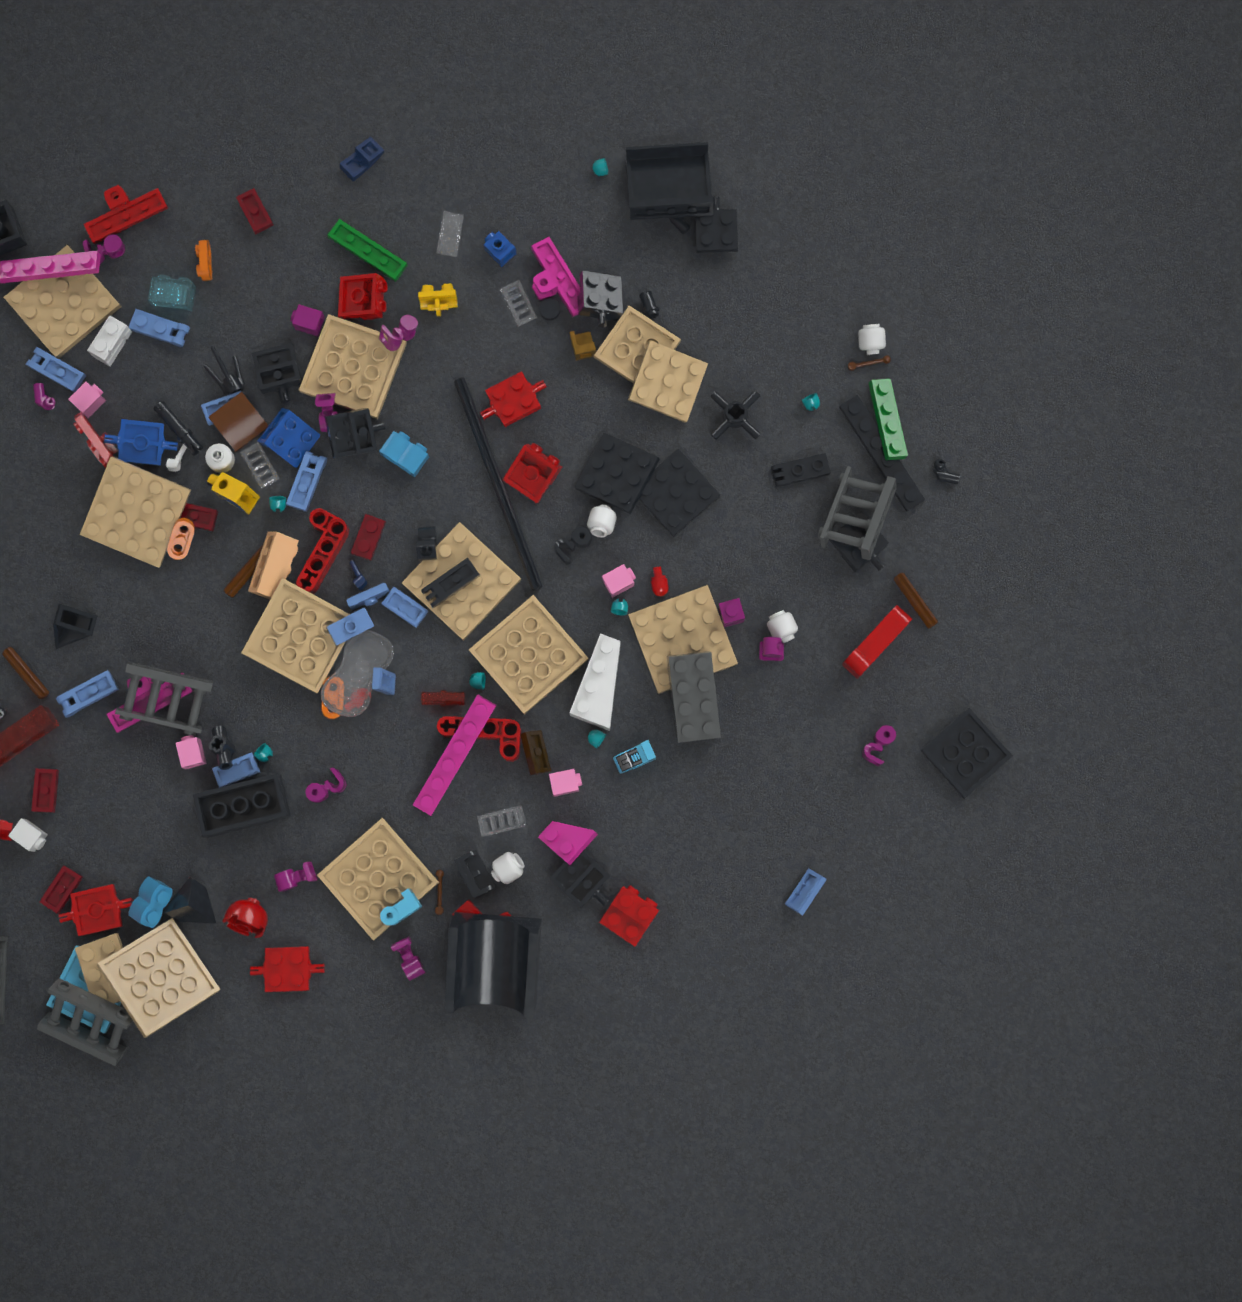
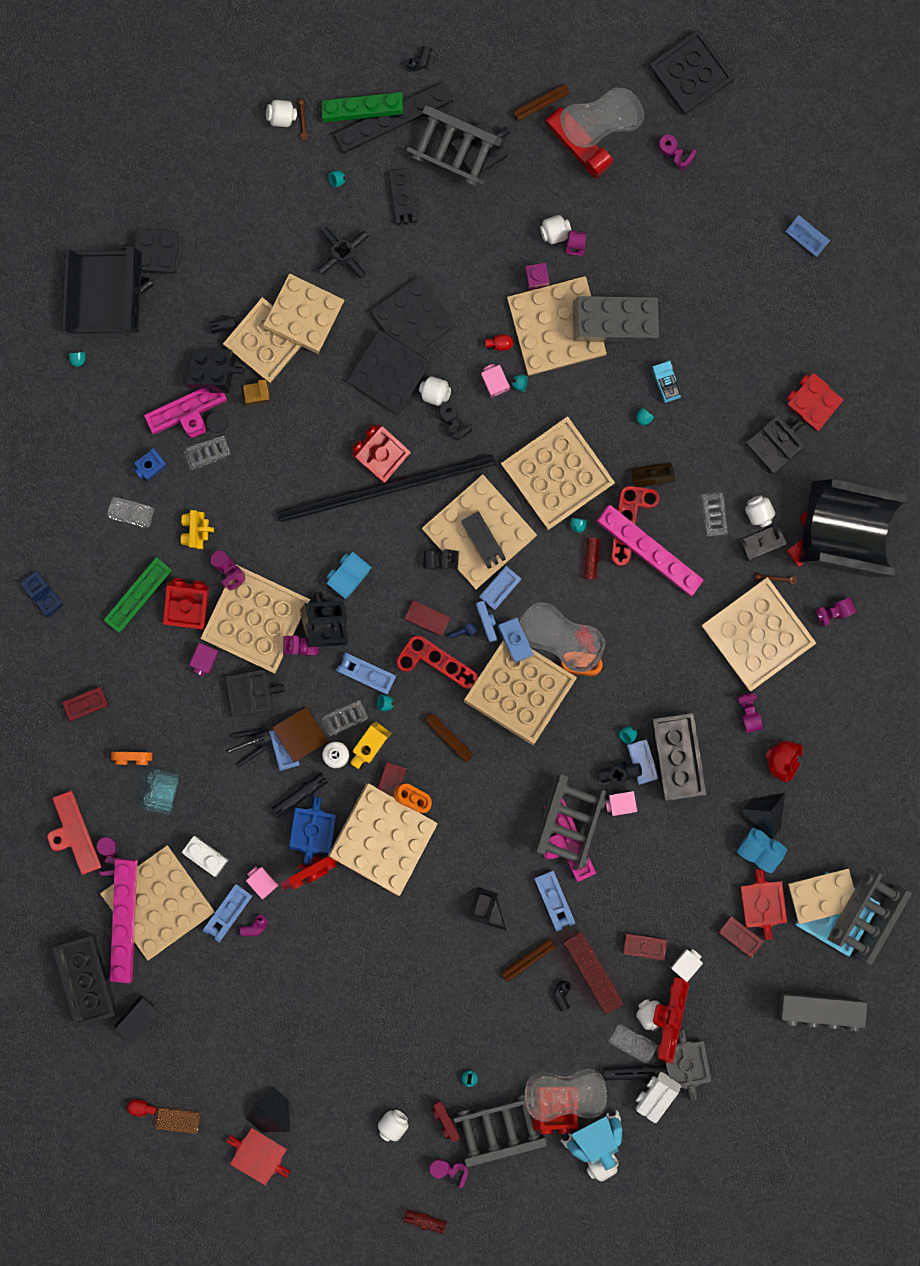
camera: 90 degrees left, 5 degrees up
(158, 327) = (195, 808): medium blue plate -> none
(158, 977) = (834, 845): tan plate -> none
(175, 464) = (336, 802): white hand -> none
(273, 564) = (447, 710): light nougat brick -> none
(287, 969) = (835, 727): red plate -> none
(289, 437) = (319, 687): blue bracket -> none
(318, 793) = (671, 684): magenta leg -> none
(383, 681) = (572, 612): medium blue plate -> none
(394, 914) = (795, 619): medium azure leg -> none
(513, 399) = (304, 466): red plate -> none
(565, 782) = (684, 449): bright pink brick -> none
(567, 840) = (739, 453): dark pink wing -> none
(598, 685) = (599, 410): white wedge -> none
(898, 649) = (591, 122): none -> clear plate

